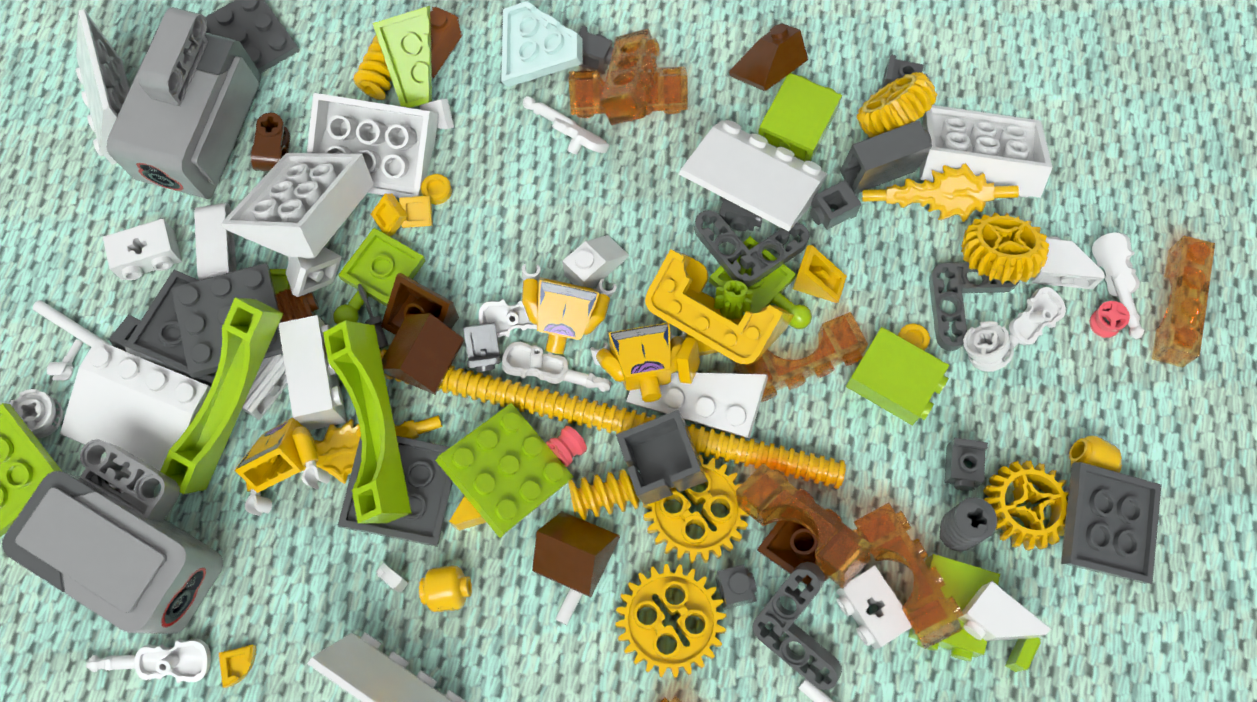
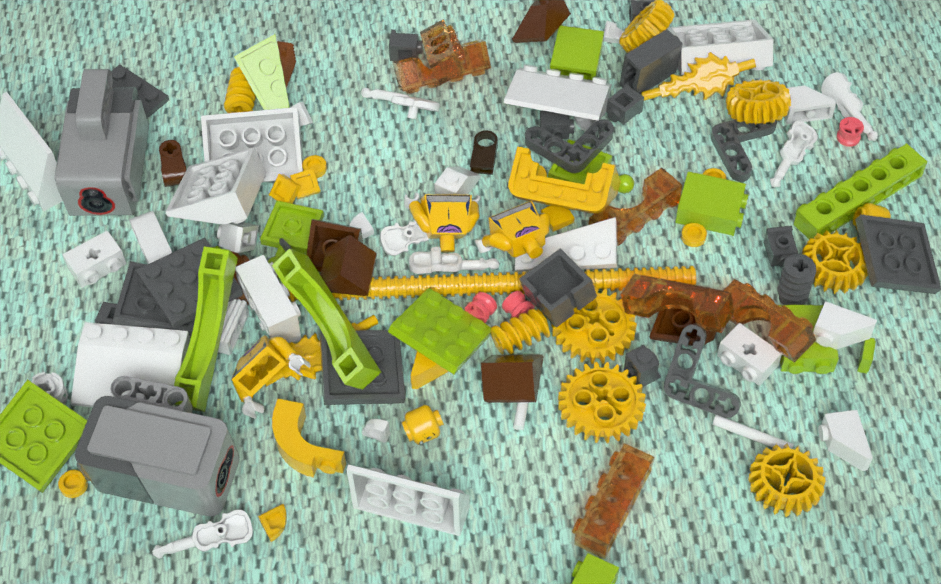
camera: 15 degrees left, 15 degrees down
(64, 369) = (56, 358): white hand -> none
(66, 323) = (49, 327): white bar -> none
(284, 567) = (297, 453): none -> yellow arch
(462, 289) = (361, 221): none -> white tile
(482, 346) = (391, 258): bracket -> none
(536, 45) = (360, 50): light aqua plate -> none
(610, 456) = (516, 304): none -> coral wheel
(640, 230) = (484, 157): none -> dark brown piece
(688, 360) = (554, 223): yellow tile -> none
(733, 299) = (573, 174): lime gear -> none
(819, 276) = (628, 153): yellow slope -> none
(854, 94) = (612, 32): none -> white tile
(862, 412) = (693, 235): none -> yellow tile
(988, 346) = (770, 167): white wheel -> none
(1169, 391) = (870, 185): none -> lime brick
(1181, 330) = (902, 119): clear orange arch -> none

